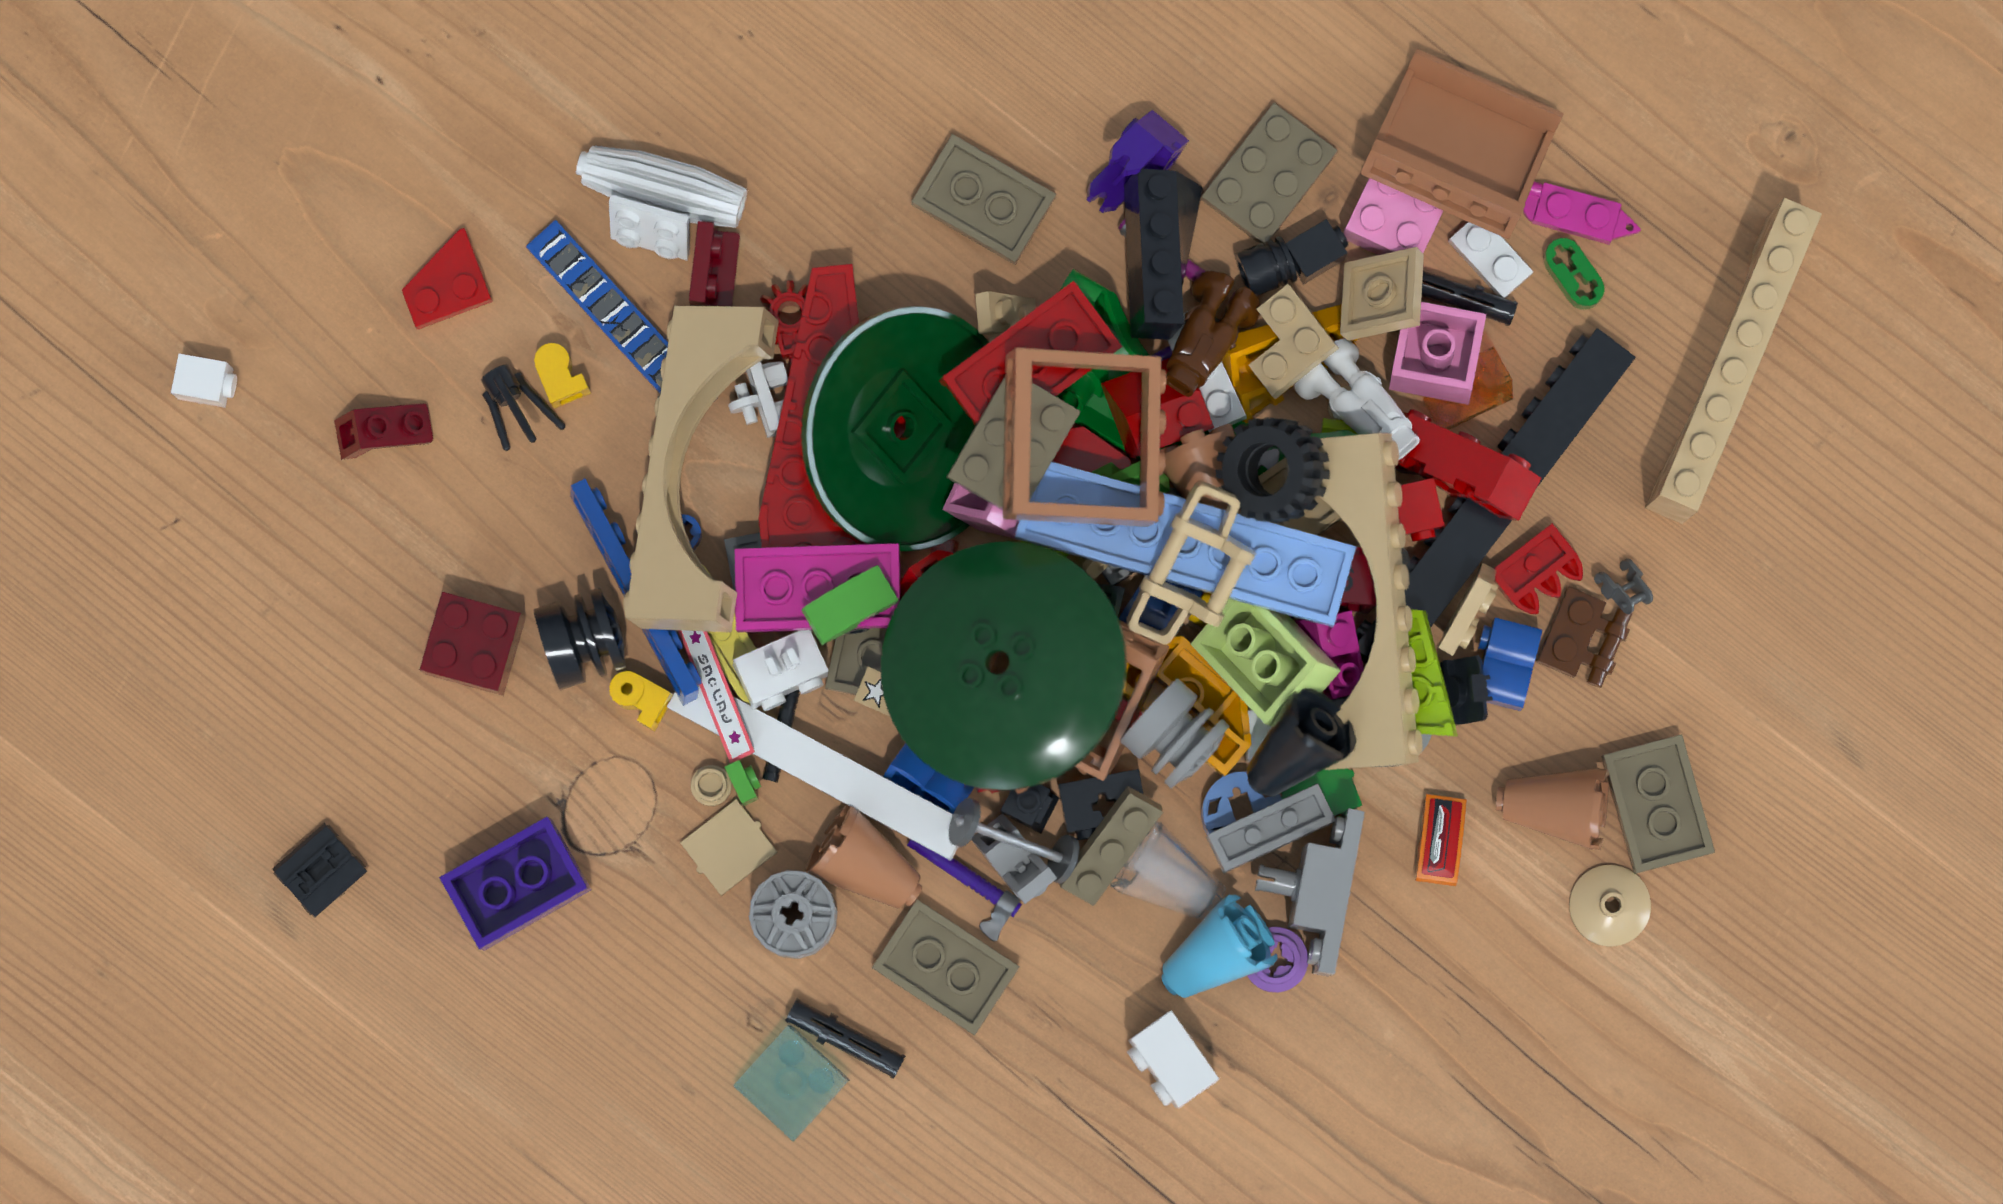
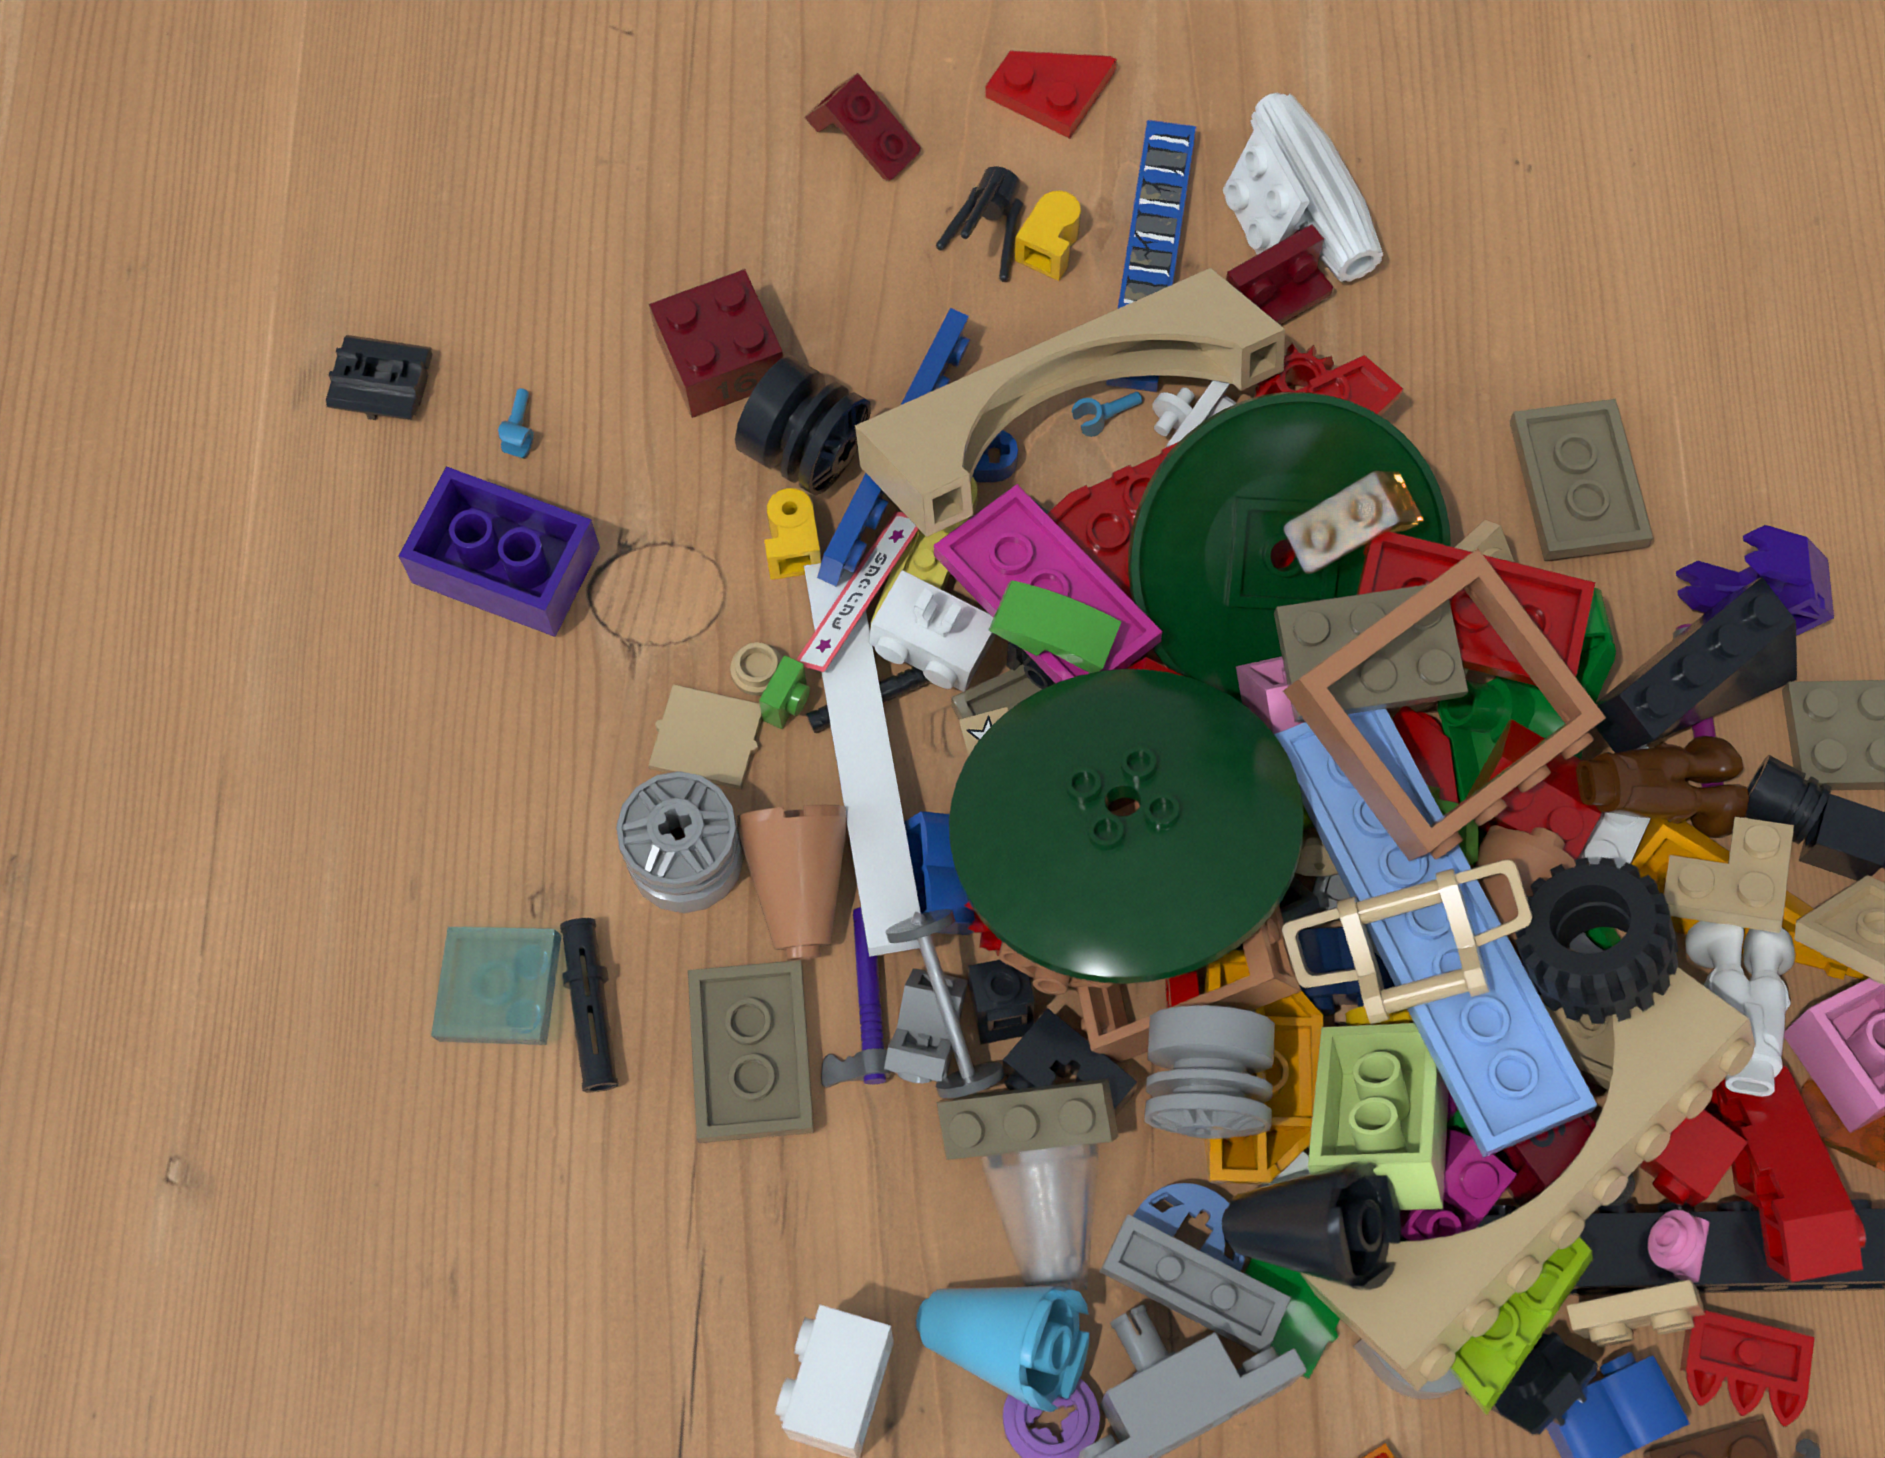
camera: 55 degrees right, 15 degrees down
(432, 817) = (514, 437): none -> dark azure hand
(707, 439) = (1102, 412): none -> dark azure hand
(927, 381) = (1351, 519): none -> bracket
(1453, 556) = (1679, 1244): none -> bright pink plate

